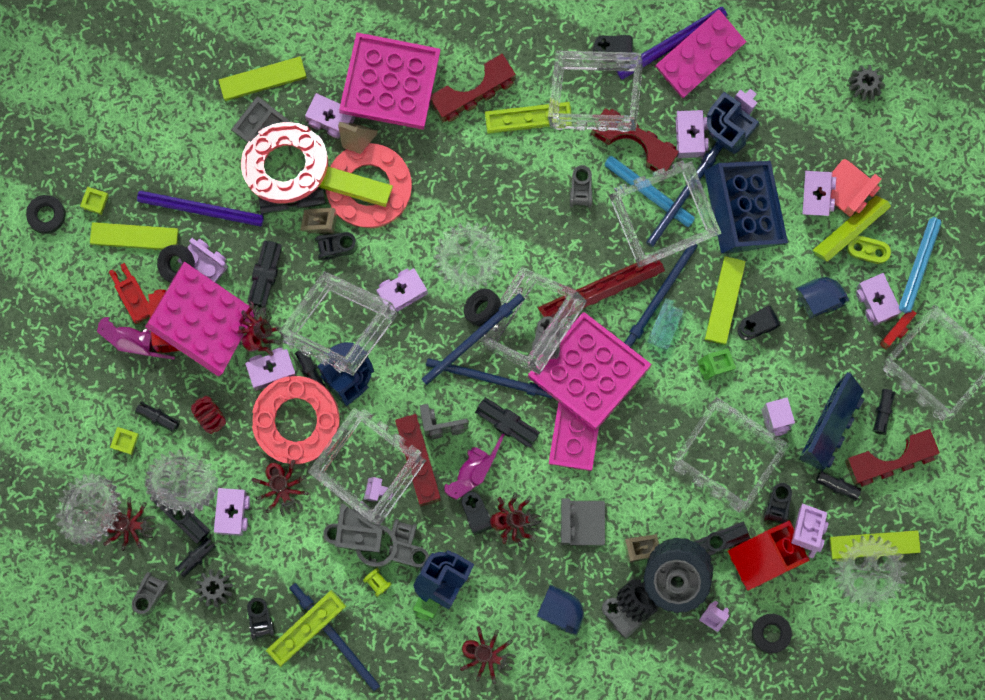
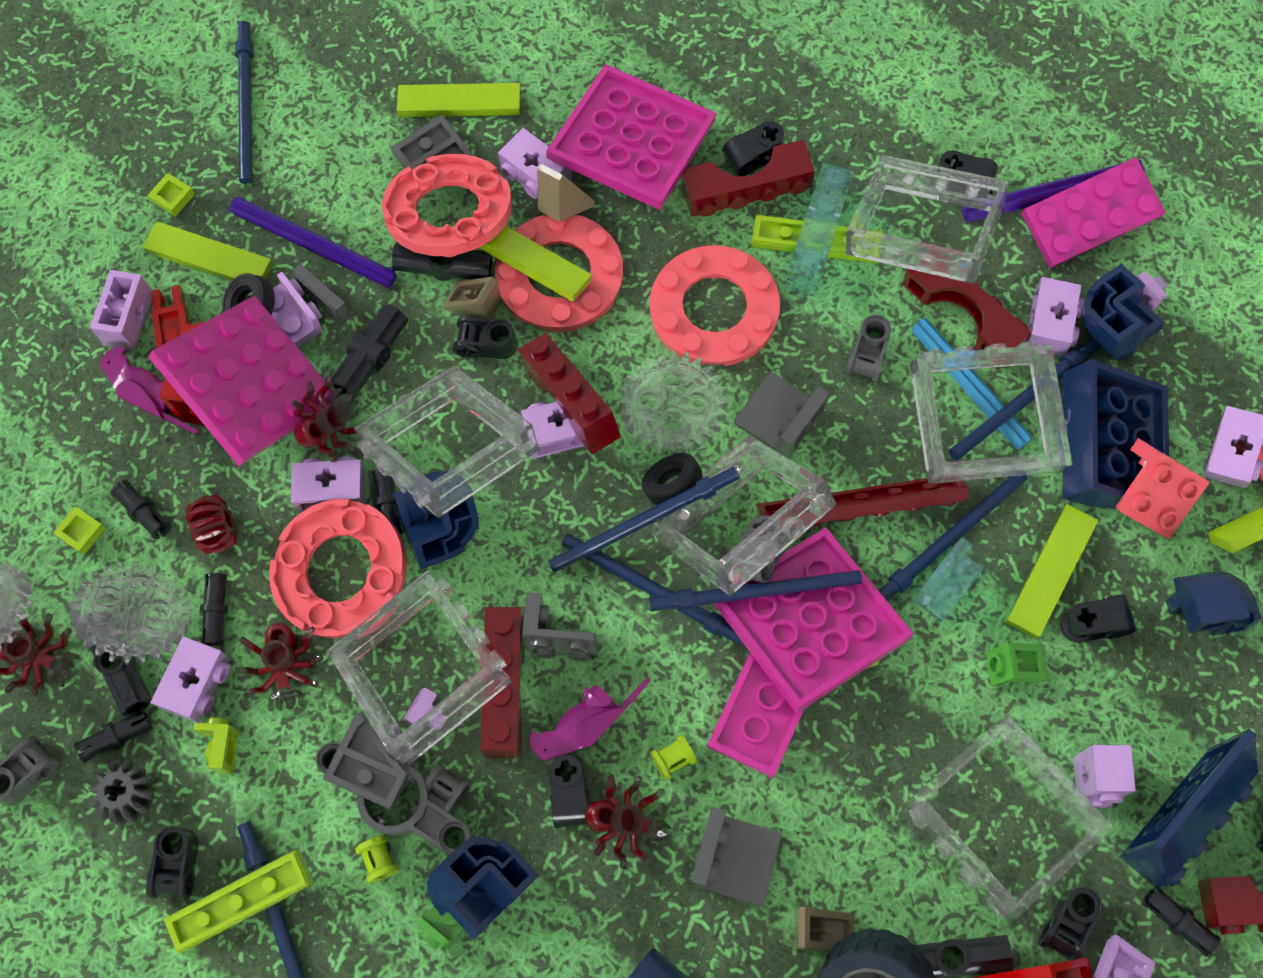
camera: 20 degrees right, 10 degrees down
(45, 201) = (100, 179): black tyre -> none
(96, 291) = (122, 310): none -> lavender brick
(102, 80) = (244, 52): none -> dark blue bar
(220, 244) = (321, 294): none -> dark grey tile
(227, 466) = (213, 609): none -> black pin
(263, 547) = (222, 749): none -> lime bracket
(407, 272) = (580, 403): none -> dark red arch
(465, 210) = (719, 347): none -> coral plate
(468, 67) = (753, 149): none -> black piece
(508, 422) = (661, 663): black piece -> none
(514, 381) = (686, 599): none -> dark blue bar
(529, 113) = (819, 229): none -> clear light blue arch
(530, 475) = (673, 757): none -> lime bush
(536, 245) = (781, 414): none -> dark grey bracket
(779, 233) = (1161, 491): none -> coral bracket

